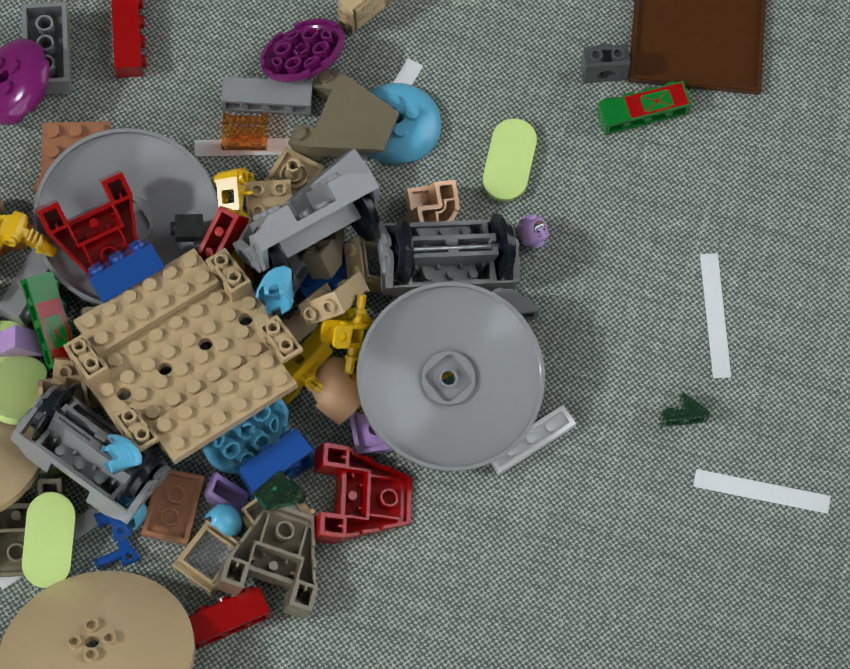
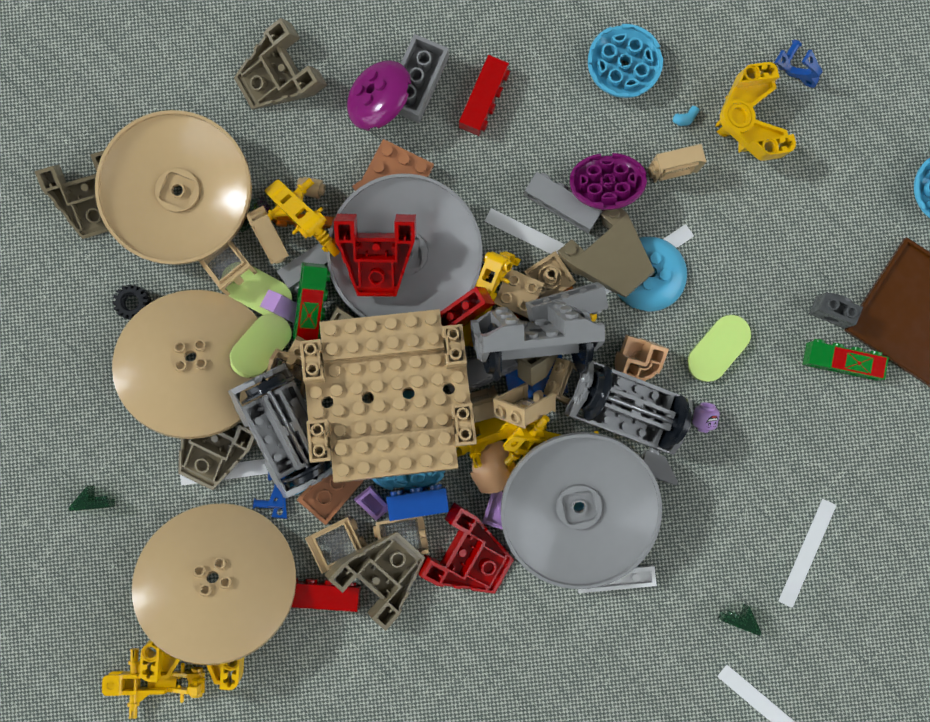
camera: 30 degrees right, 15 degrees up
(48, 539) = (227, 470): yellowish green tile -> none
(123, 454) = (297, 456): medium azure hair -> none
(124, 269) = (379, 298): blue brick -> none
(187, 227) = (445, 286): pearl dark grey brick -> none
(225, 519) = (360, 524): medium azure hair -> none
(244, 136) = (528, 226): clear orange plate -> none
(277, 290) = (482, 382): medium azure hair -> none
(279, 492) = (407, 530): clear green slope -> none

